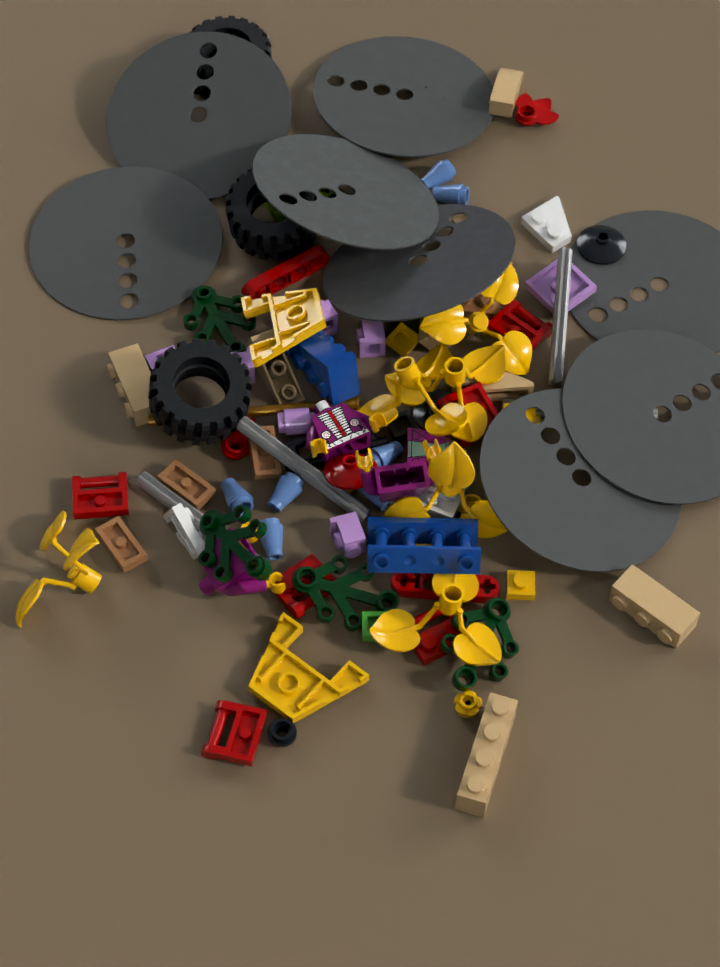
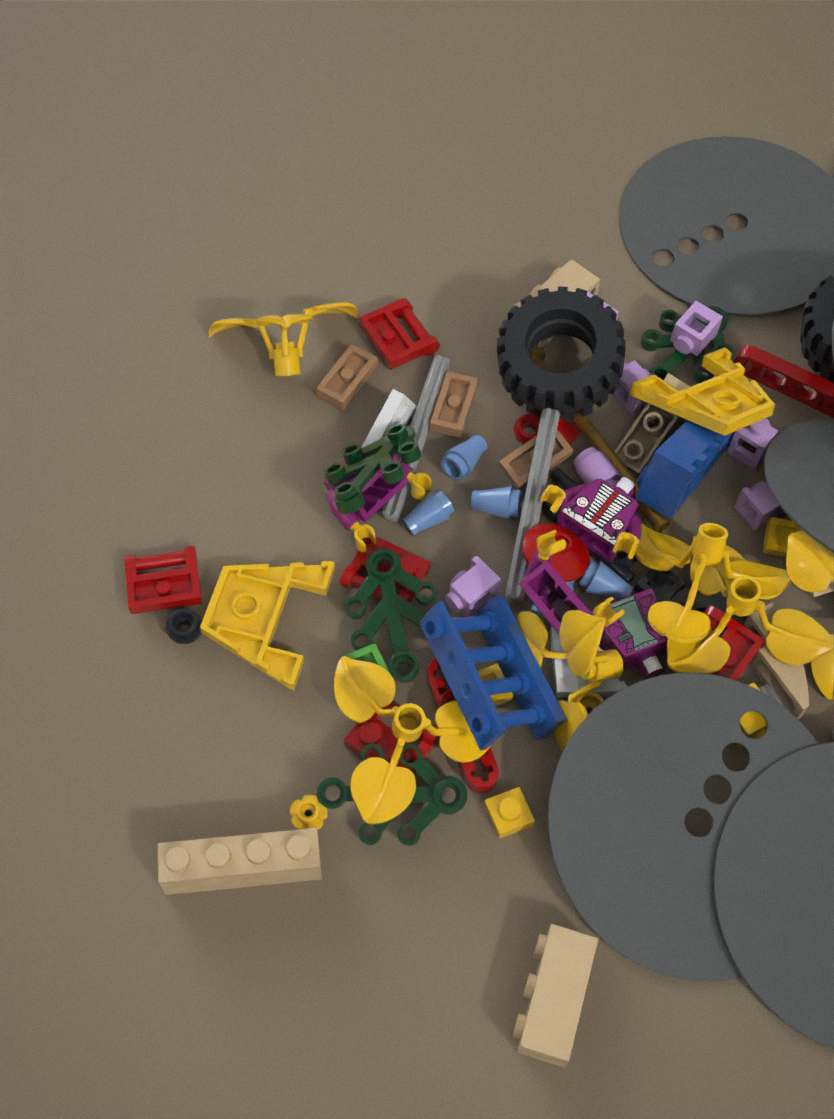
camera: 65 degrees right, 5 degrees up
(217, 312) = (692, 335): none -> lavender brick

